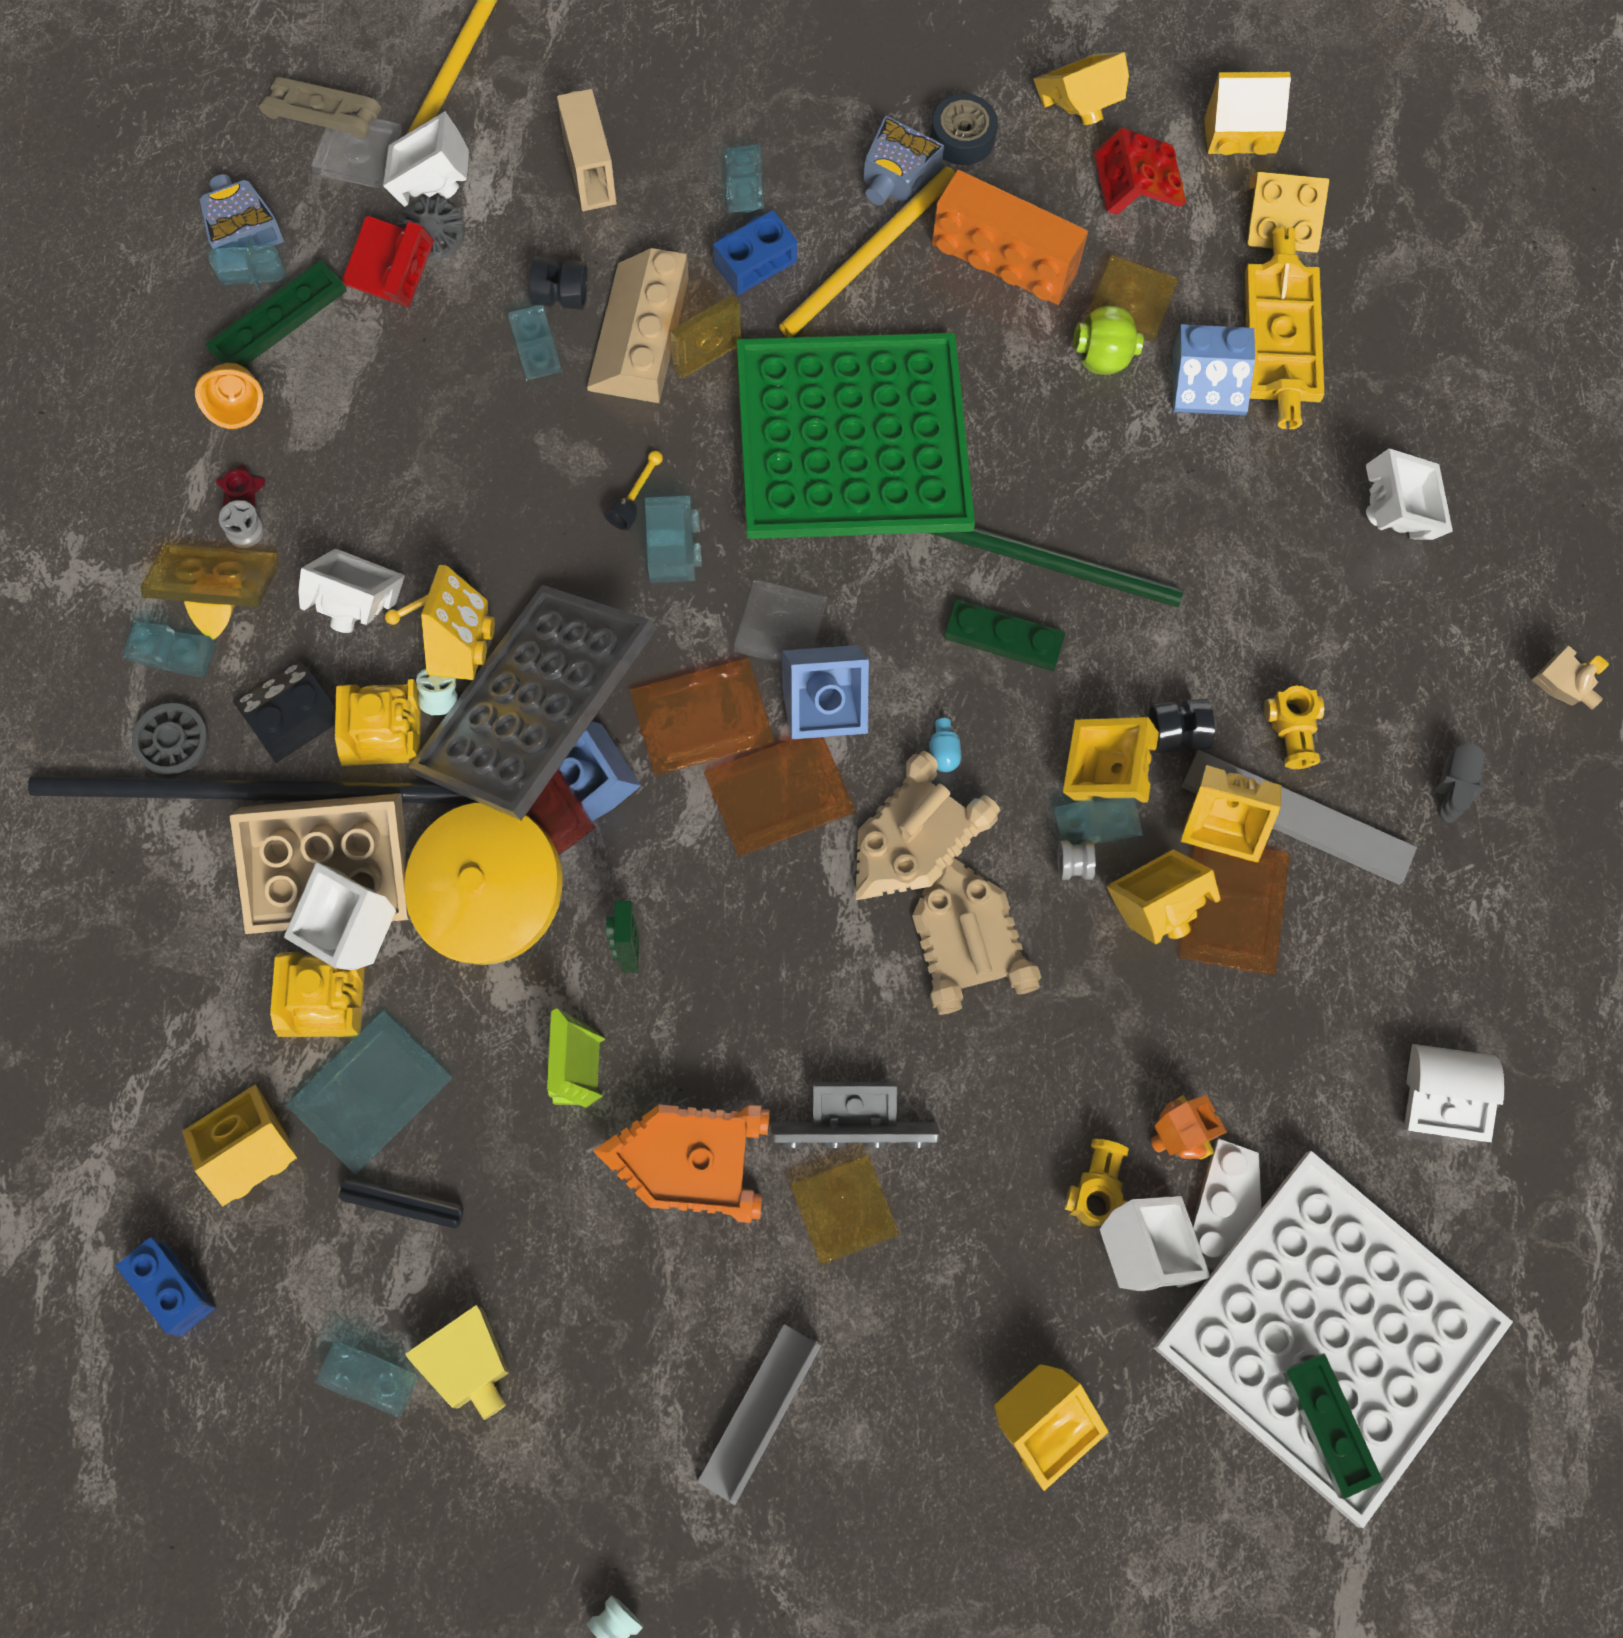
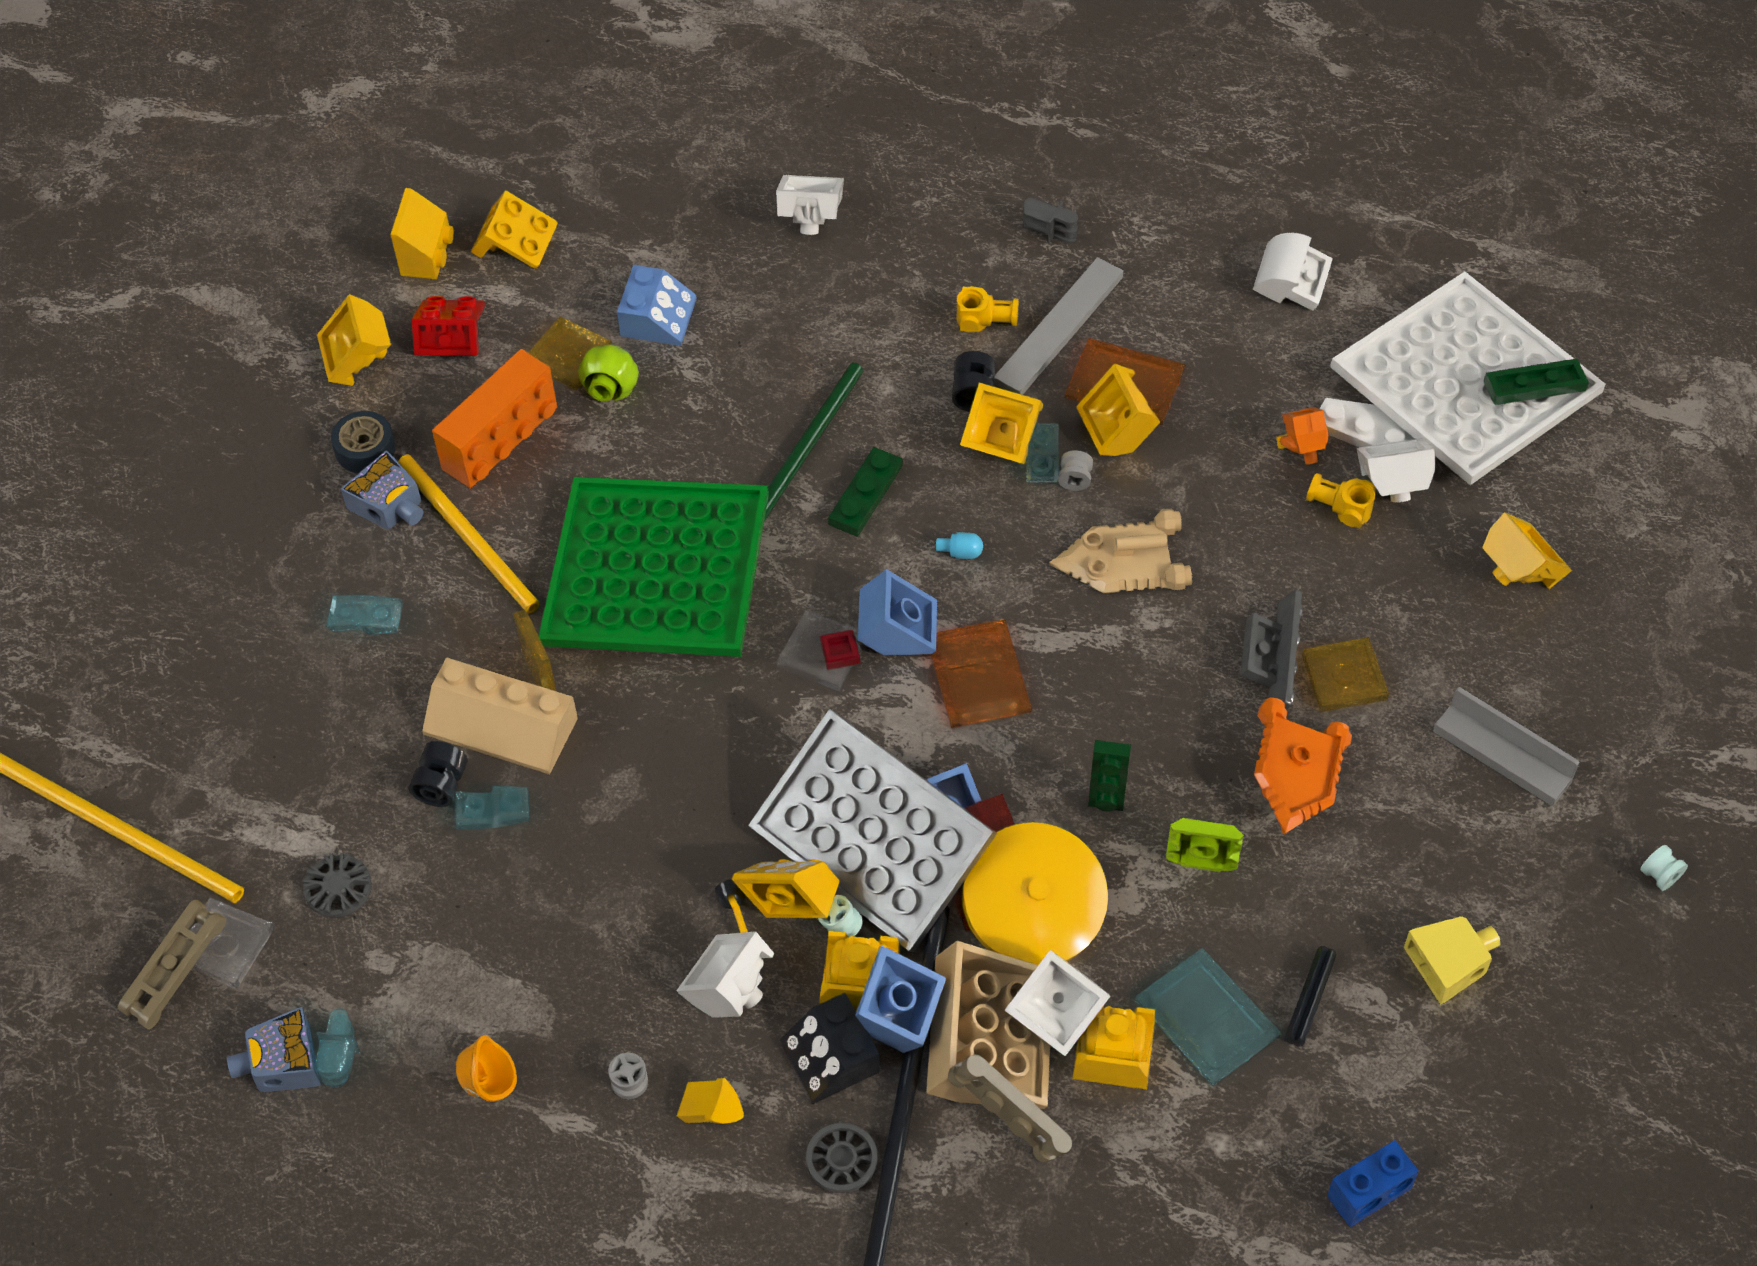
camera: 75 degrees left, 15 degrees down
(169, 650) = (747, 1153): clear light blue slope -> none
(210, 575) = (682, 1101): clear yellow tile -> none
(216, 871) = (1012, 1107): none -> dark tan plate
(237, 478) = (580, 1071): dark red plate -> none
(238, 1146) = (1247, 1117): yellow slope -> none
(277, 316) = (404, 1029): dark green plate -> none
(318, 752) = (899, 1000): none -> medium blue slope
(366, 1379) = (1460, 1031): clear light blue slope -> none
(388, 260) = (372, 915): red bracket -> none
(427, 161) = (271, 865): white brick -> none
(587, 149) = (303, 728): tan brick -> none
(623, 511) = (686, 753): black hinge -> none
(670, 539) = (725, 717): clear light blue brick -> none
(702, 717) = (901, 716): clear orange piece -> none
(759, 258) = (450, 614): blue brick -> none
(773, 636) = (840, 649): none -> dark red tile
(917, 832) = (1033, 575): tan shield -> none
(1232, 814) = (1060, 354): yellow brick -> none
(1287, 326) = (613, 249): yellow plate -> none
(1569, 680) = (977, 139): tan piece -> none

